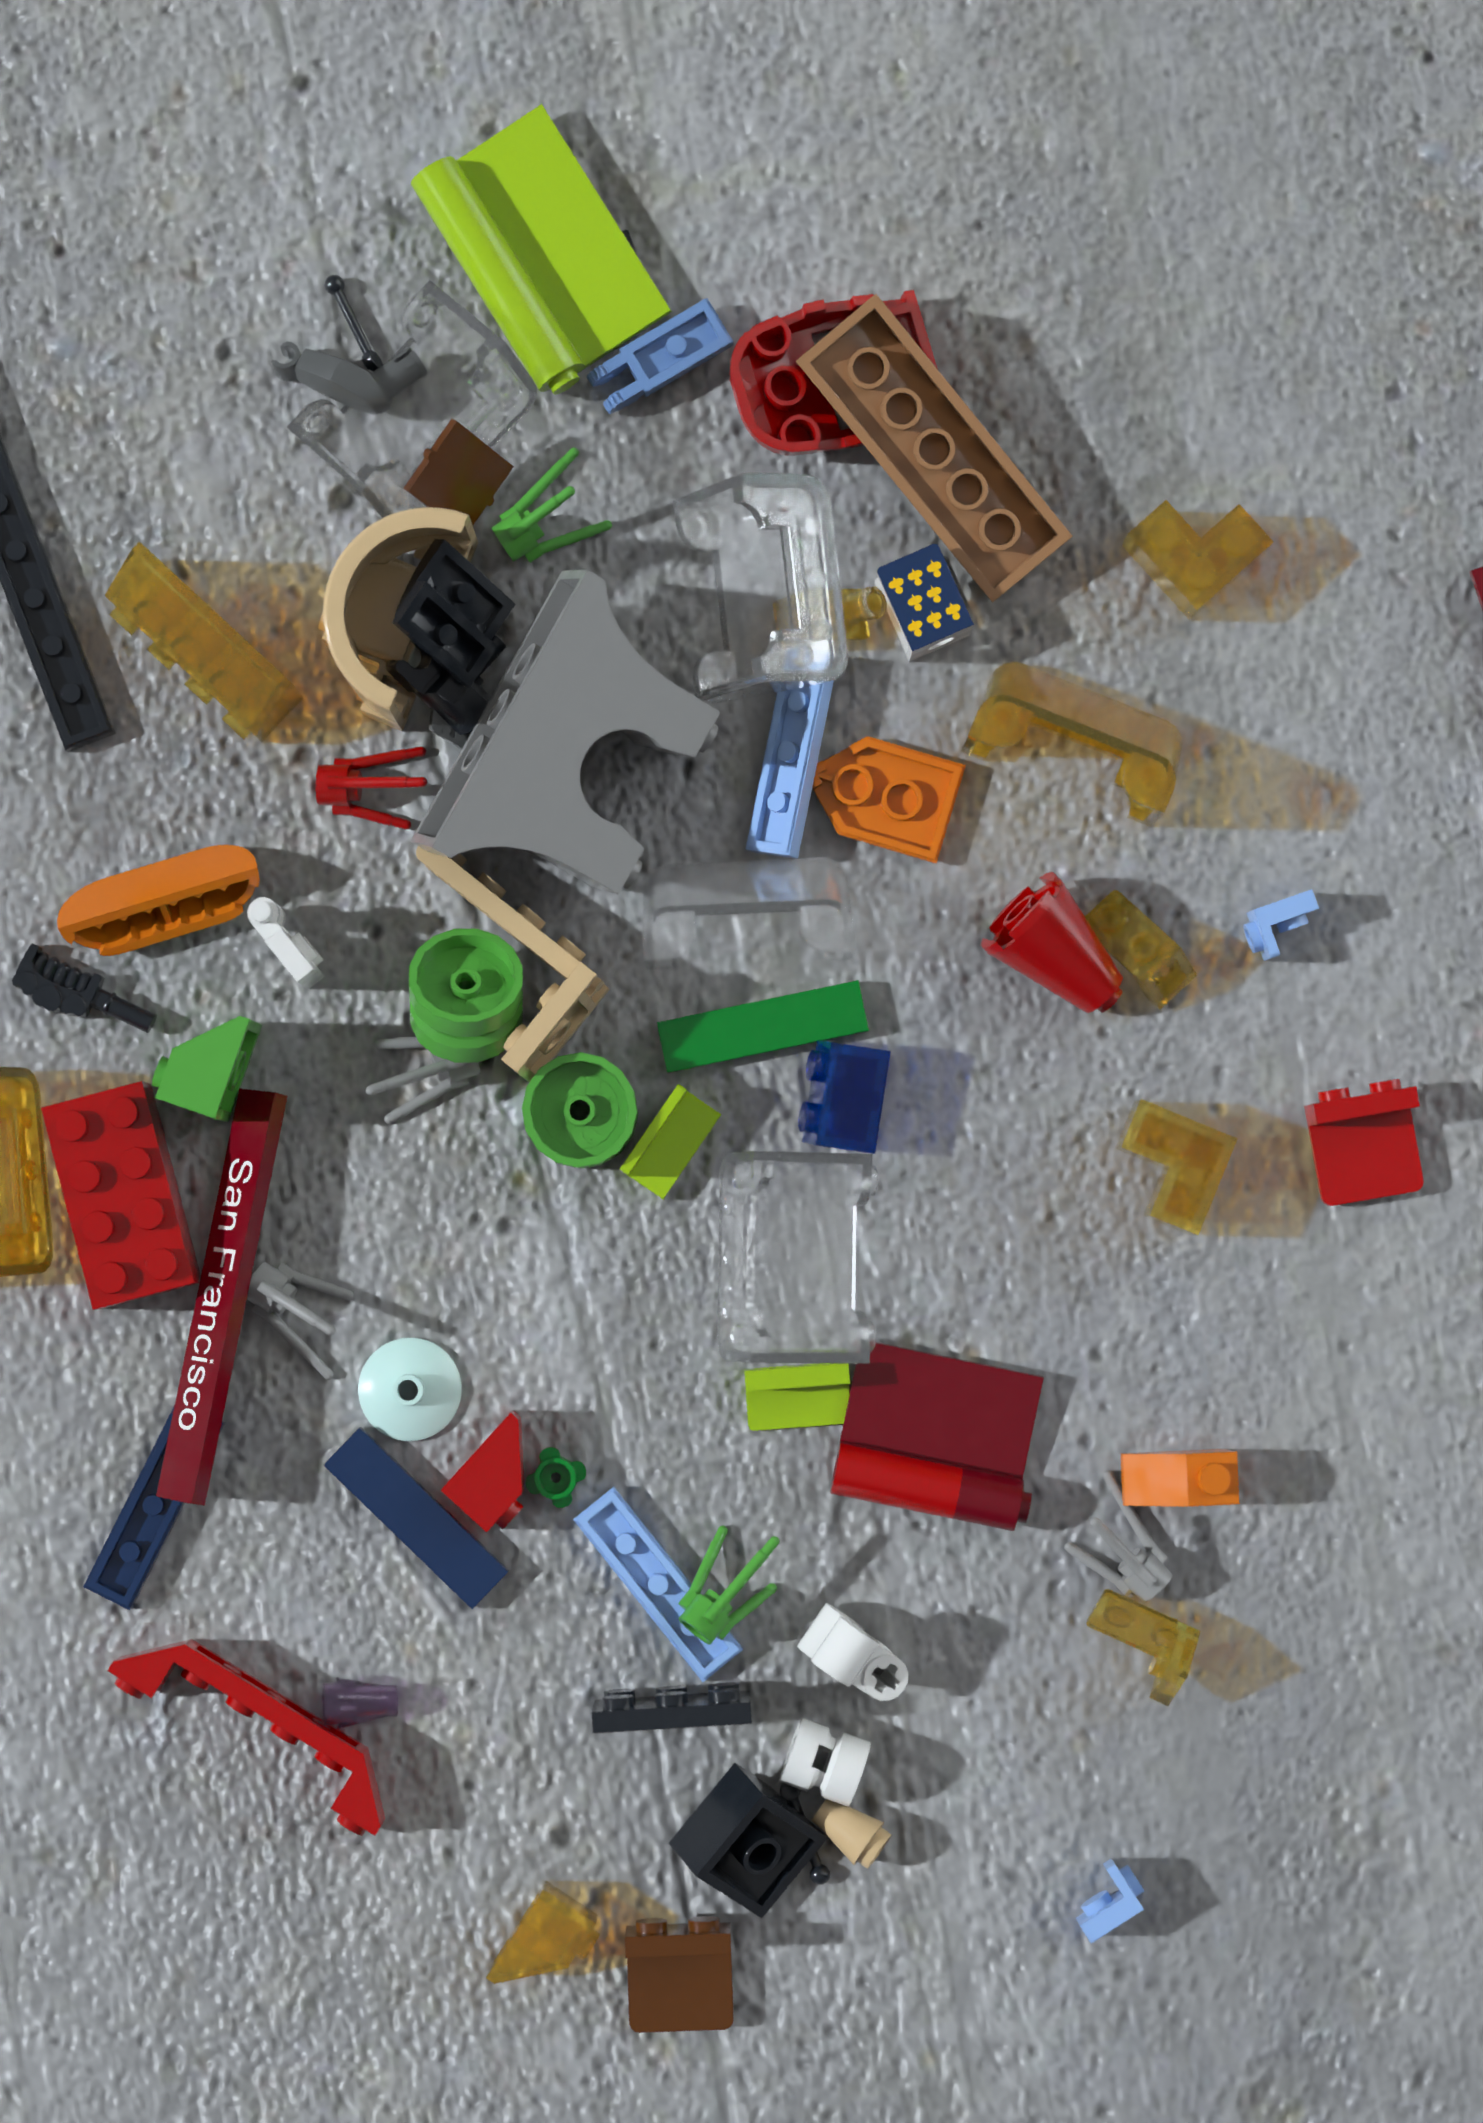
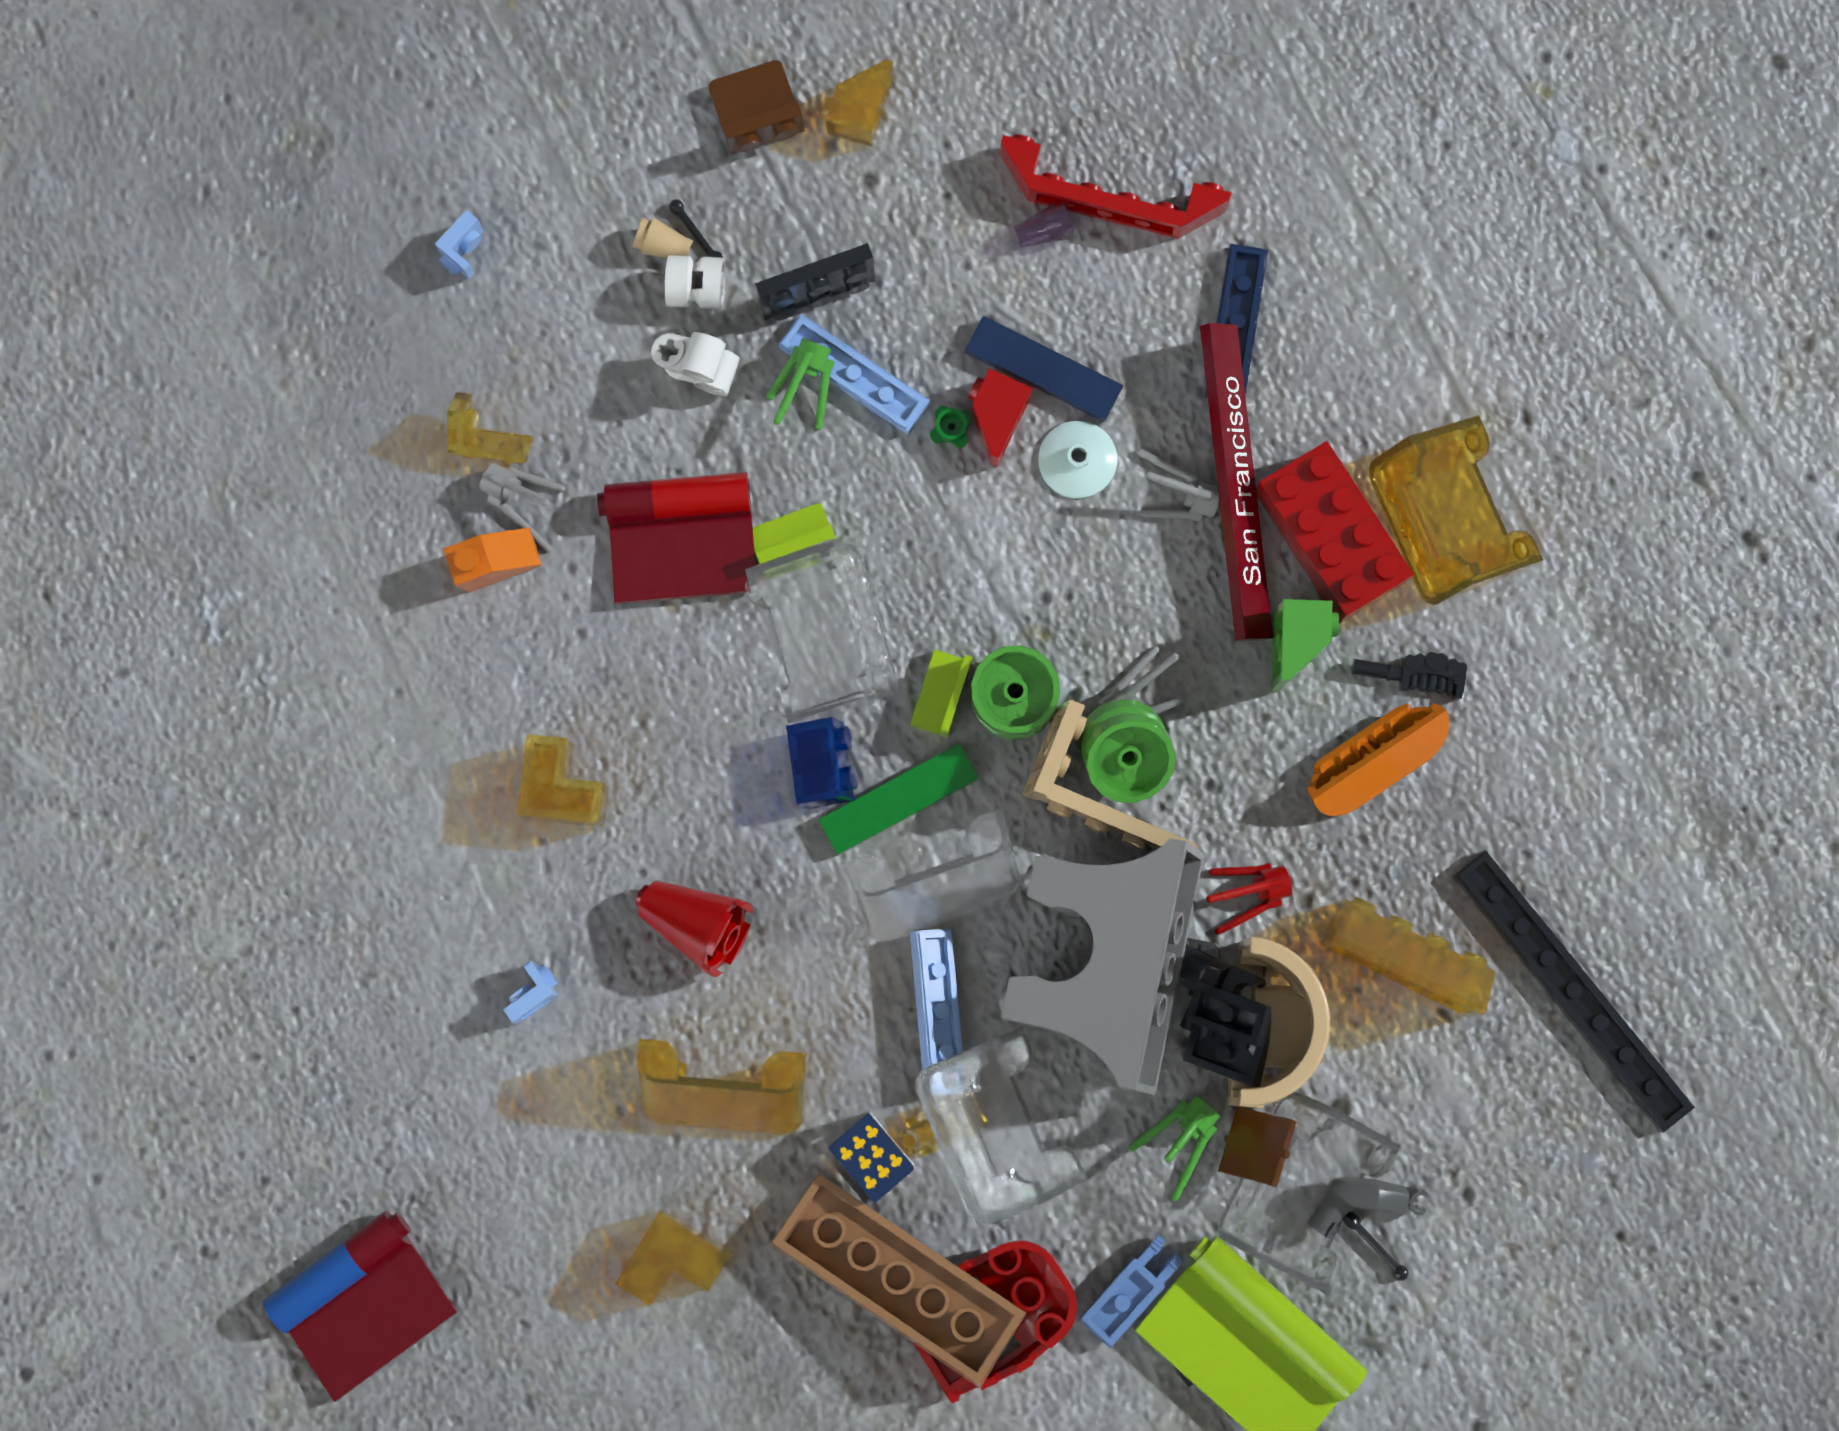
camera: 170 degrees right, 5 degrees down
(293, 951) = (1266, 744): white plate -> none
(747, 1841) = (735, 211): black slope -> none
(889, 796) = (854, 1002): orange tile -> none
(1141, 948) = (632, 942): clear yellow bracket -> none
(1365, 1143) = (421, 845): red bracket -> none

